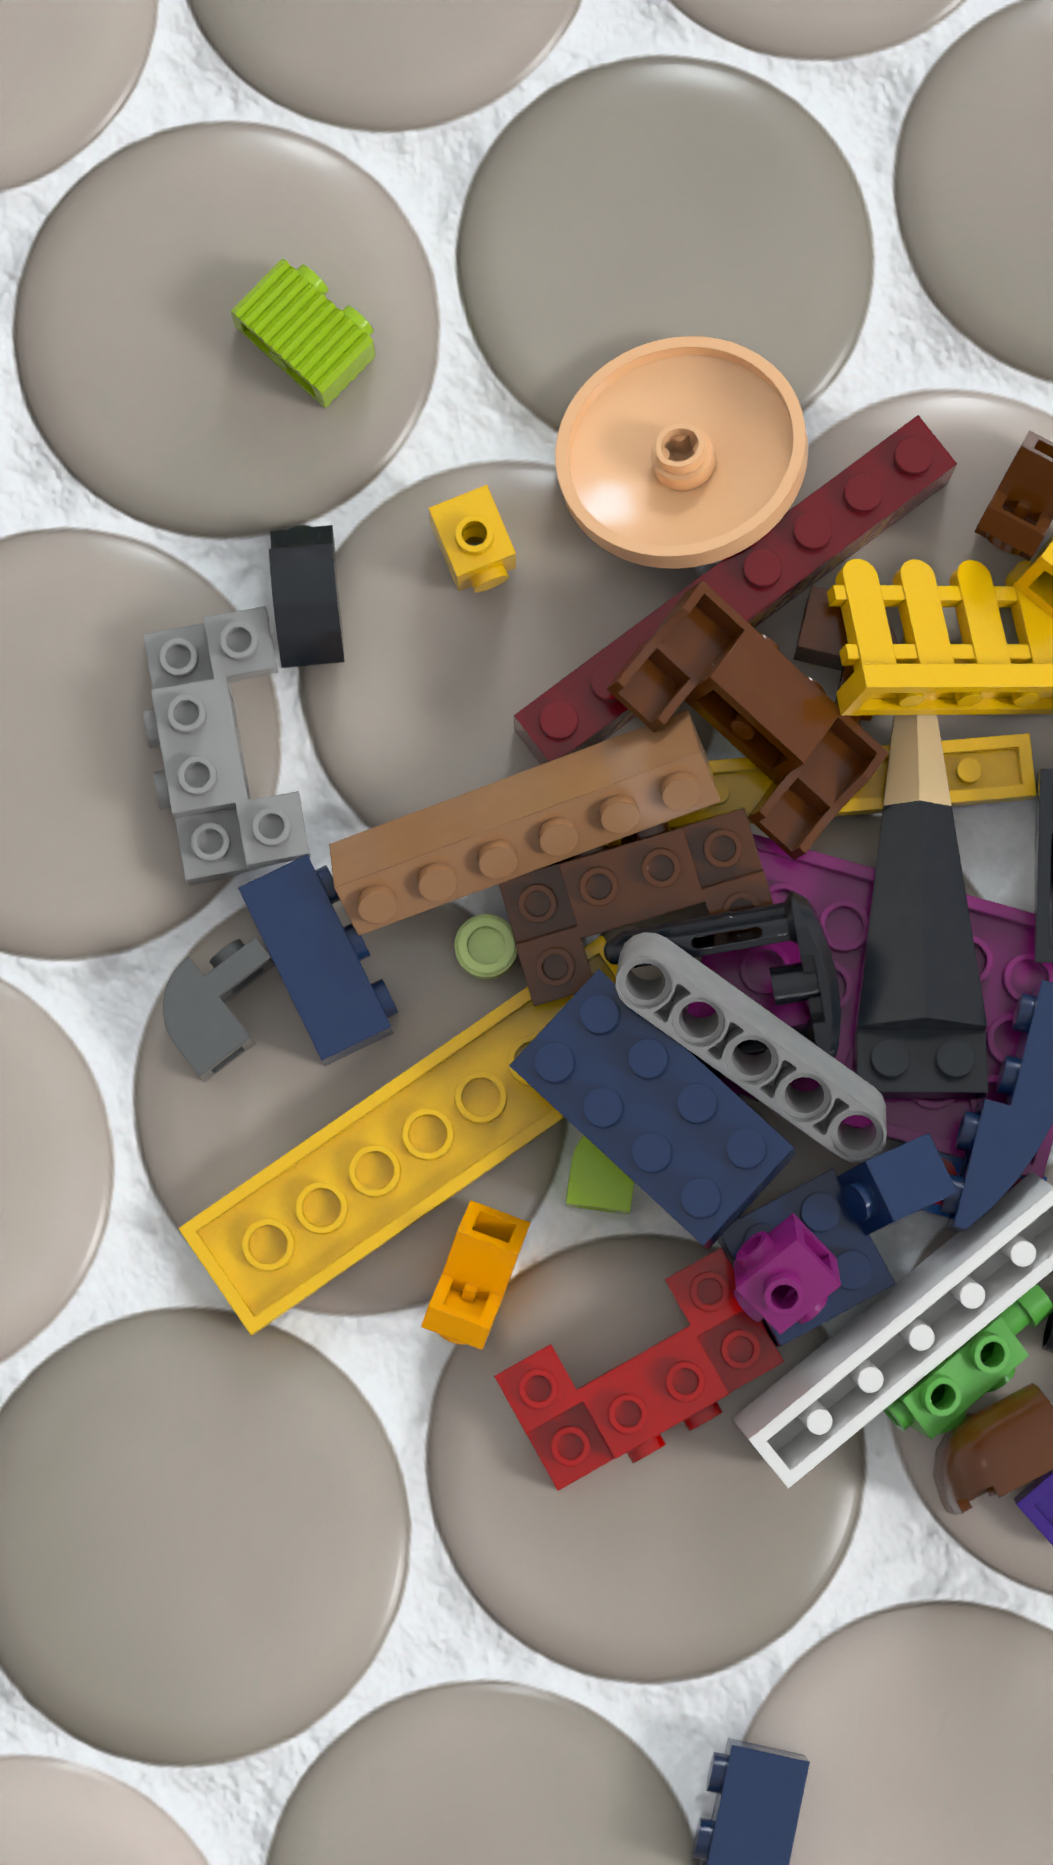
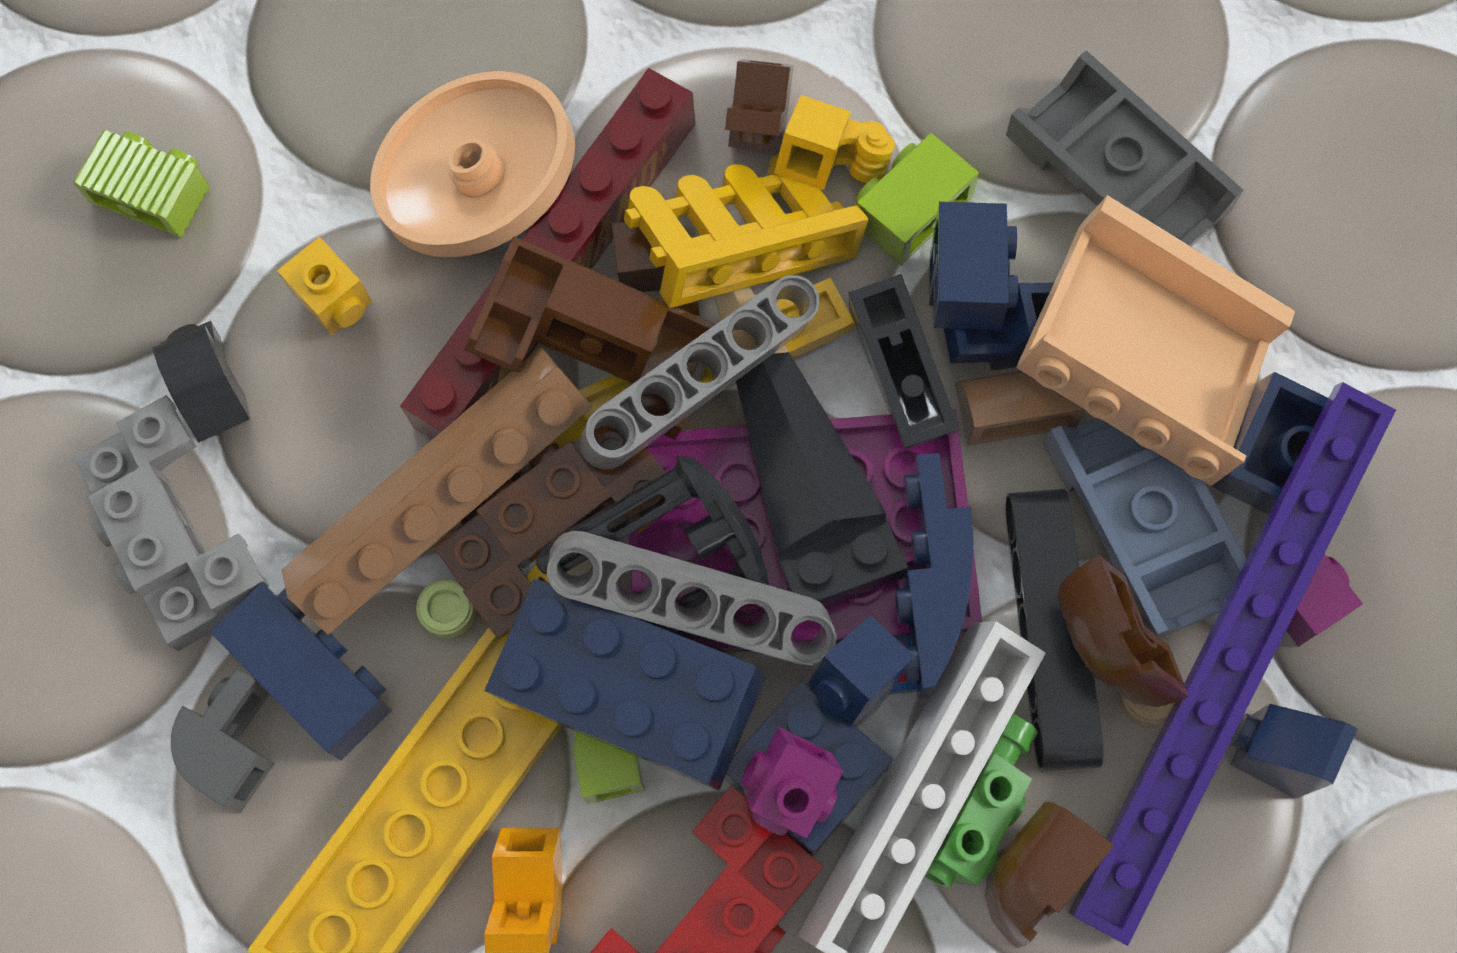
camera: 15 degrees left, 10 degrees down
(878, 799) = (717, 351): none -> light grey beam

